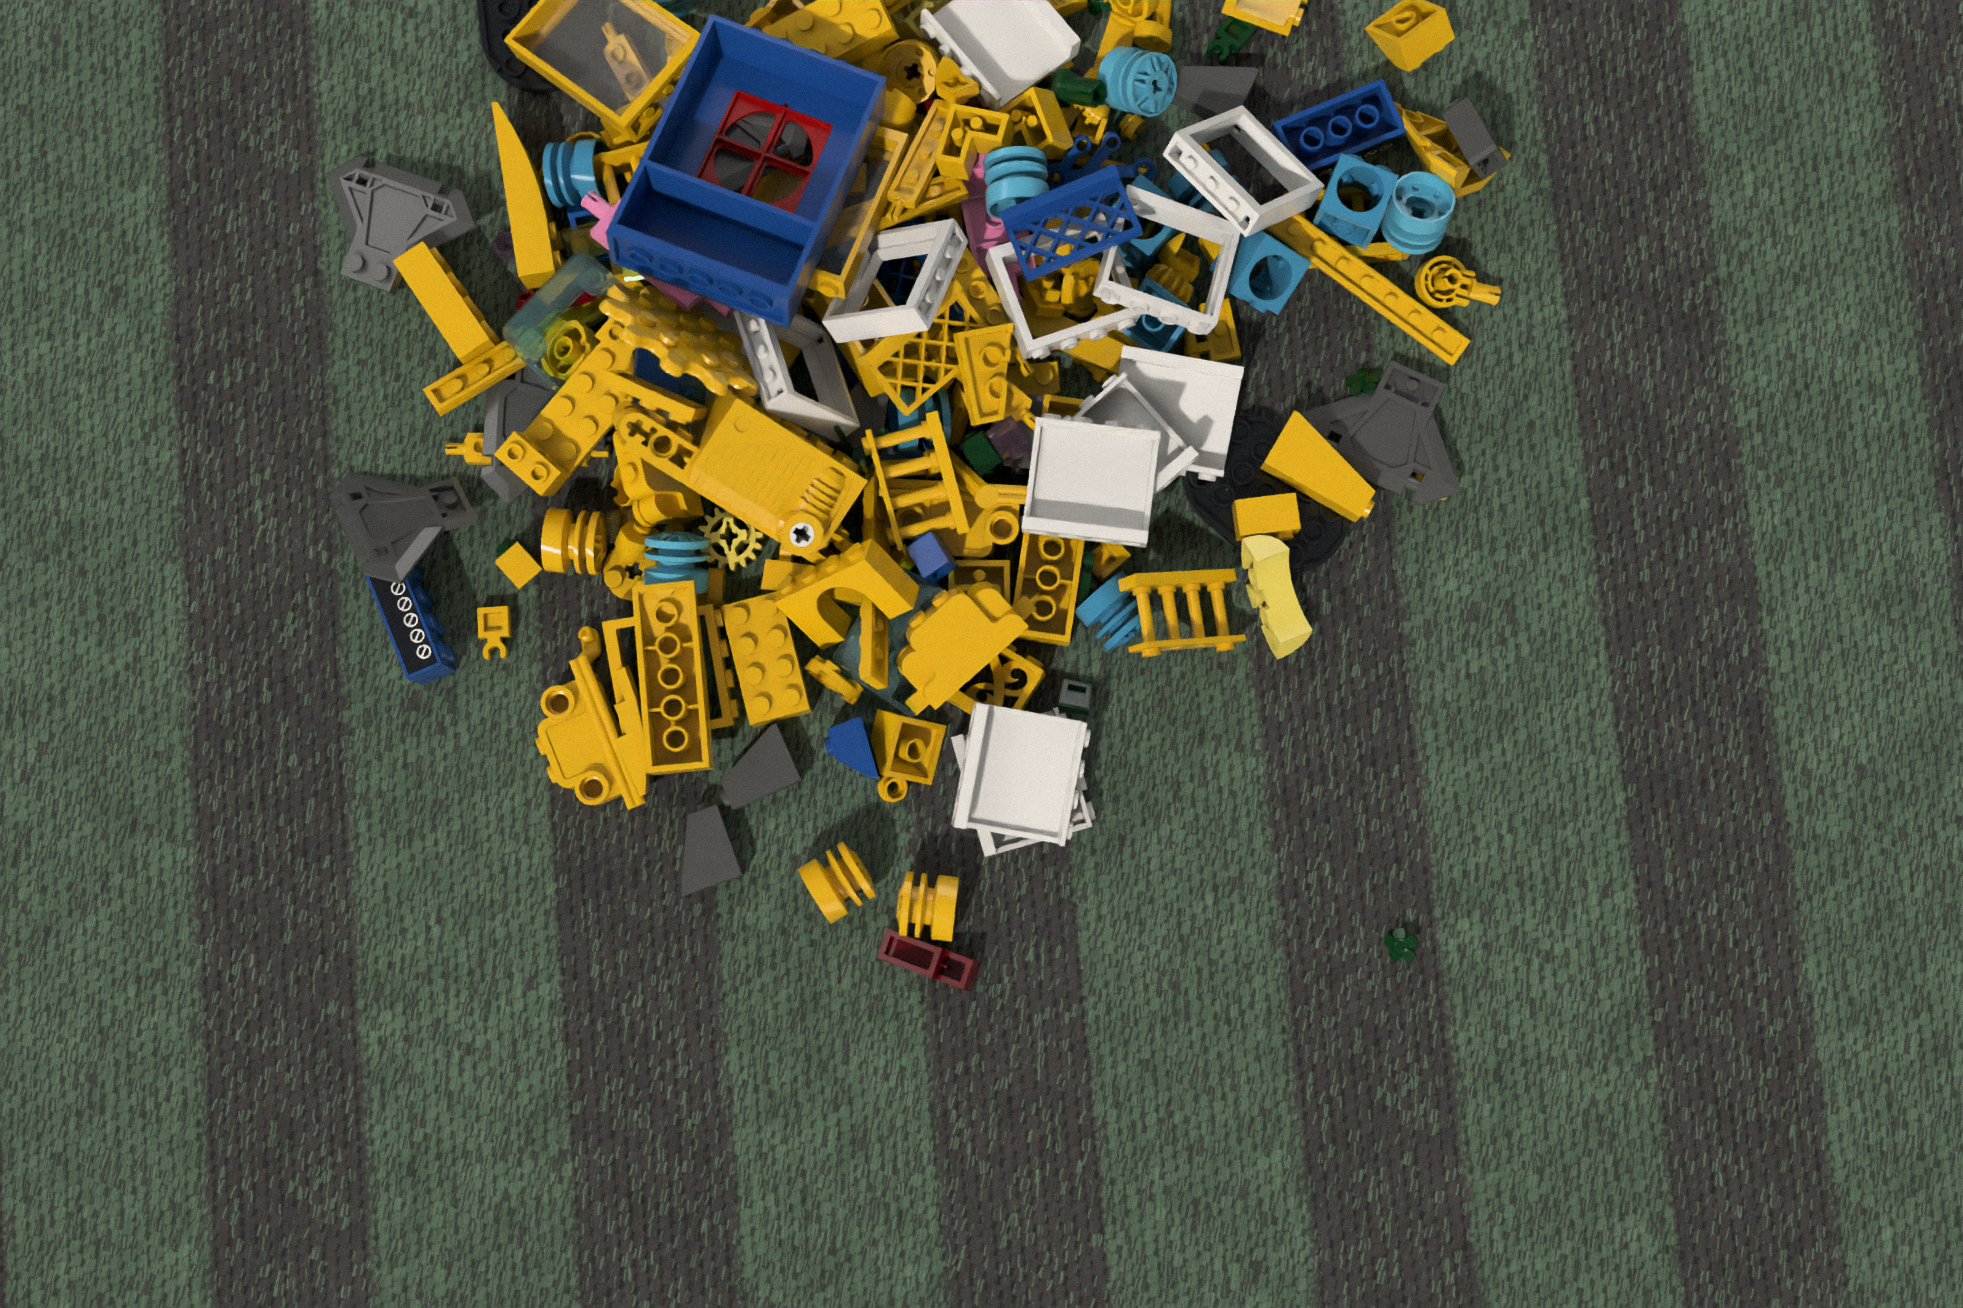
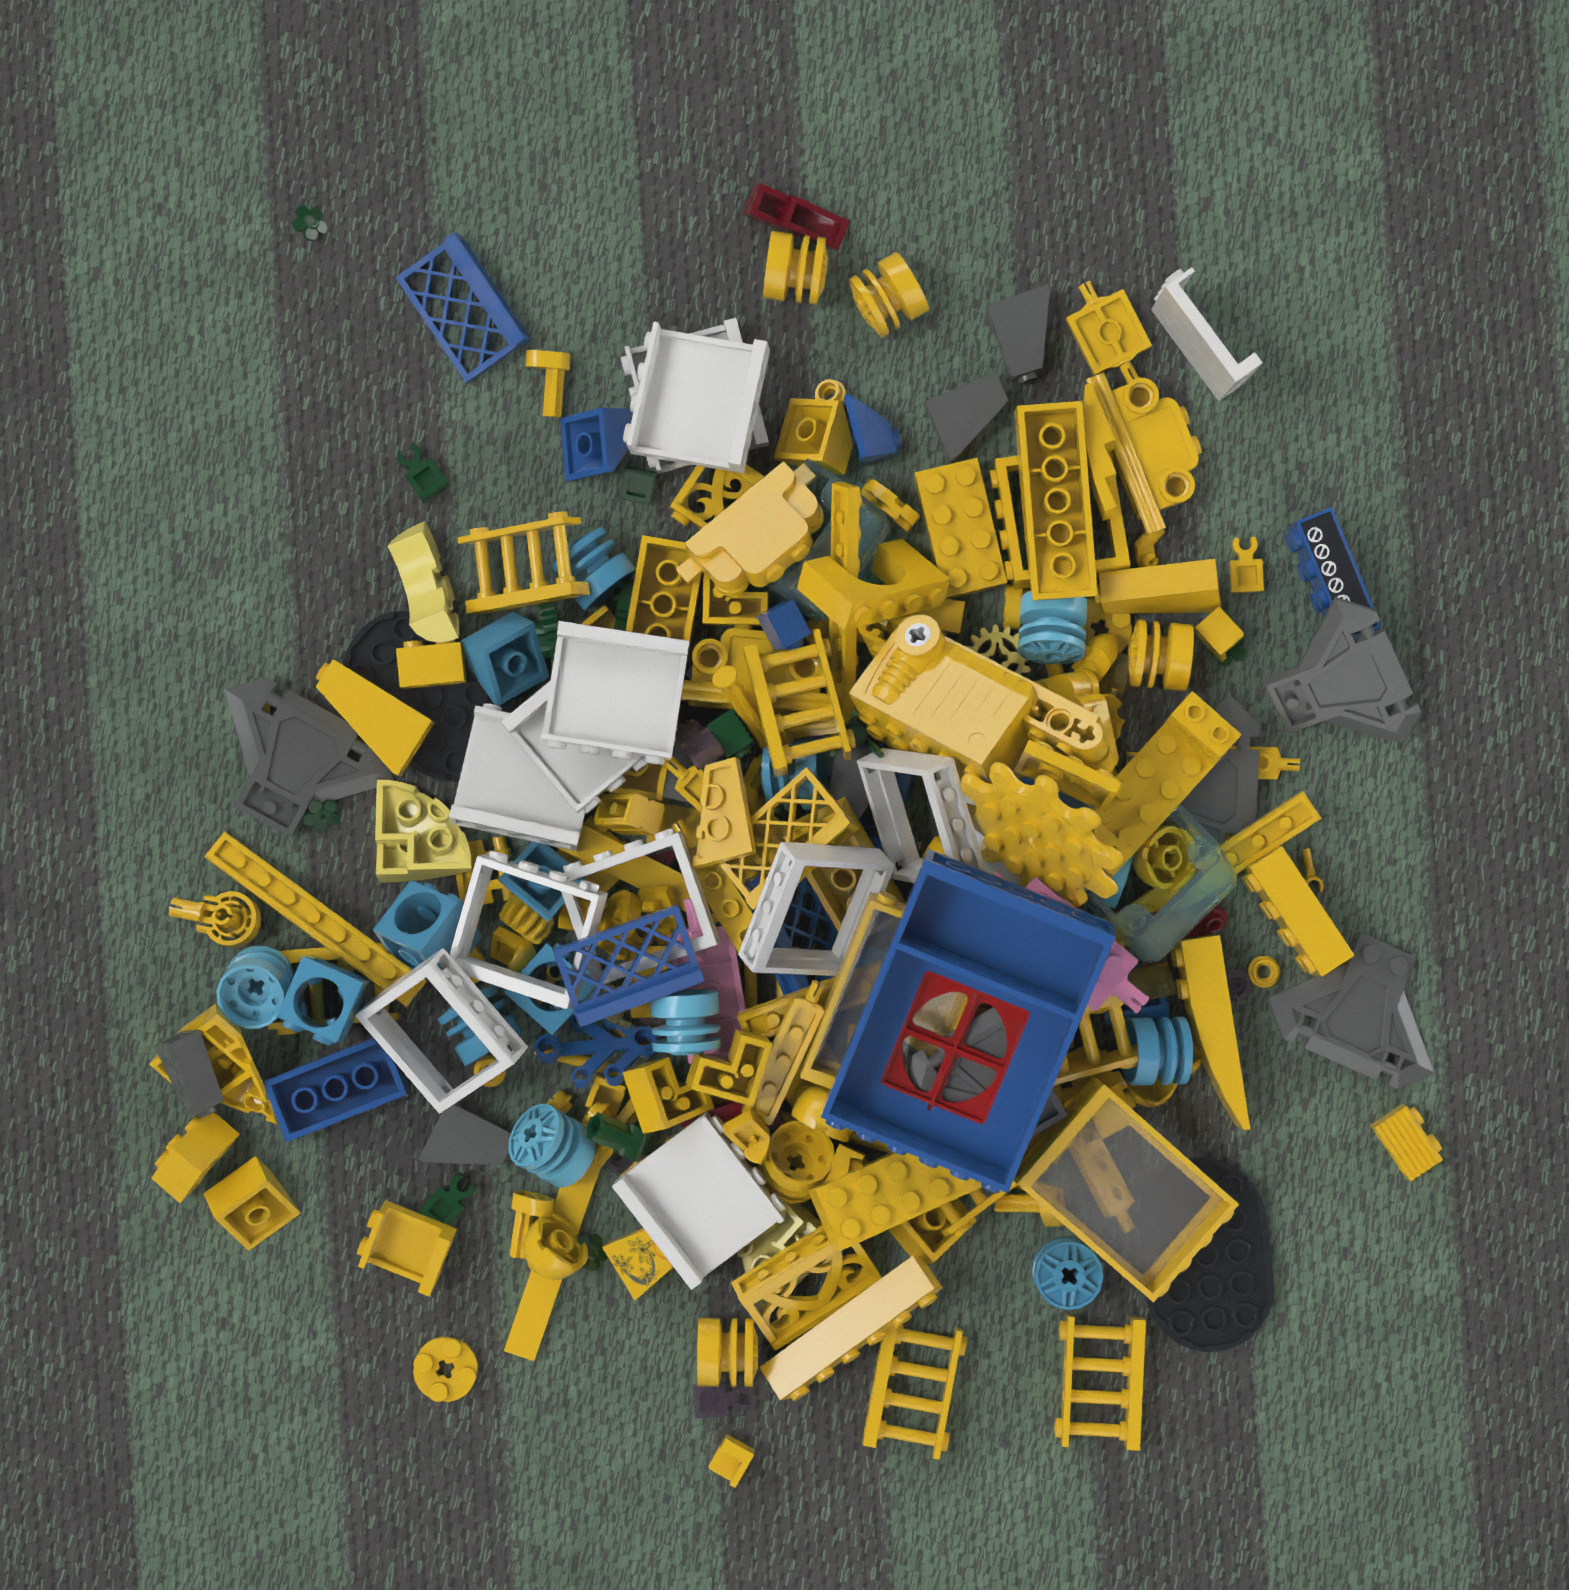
camera: 175 degrees left, 5 degrees up
(351, 107) = (1407, 1141): none -> yellow brick
(437, 349) = (1310, 871): none -> yellow hand
(475, 252) = (1273, 967): none -> yellow plate
(534, 836) = (1198, 339): none -> white panel
(573, 603) = (1161, 589): none -> yellow slope
(625, 853) = (1108, 332): none -> yellow plate
(1071, 379) = (629, 814): none -> yellow brick
(1118, 735) = (593, 441): none -> blue slope
(1156, 551) = (547, 628): none -> dark green gear
(1158, 810) = (555, 364): none -> yellow piece
(1195, 527) = (506, 657): none -> dark azure slope
(1228, 881) = (485, 291): none -> blue fence
(1274, 363) = (416, 836): none -> light yellow brick
(1279, 699) = (424, 476): none -> dark green plate
(1468, 64) = (192, 1156): none -> yellow brick

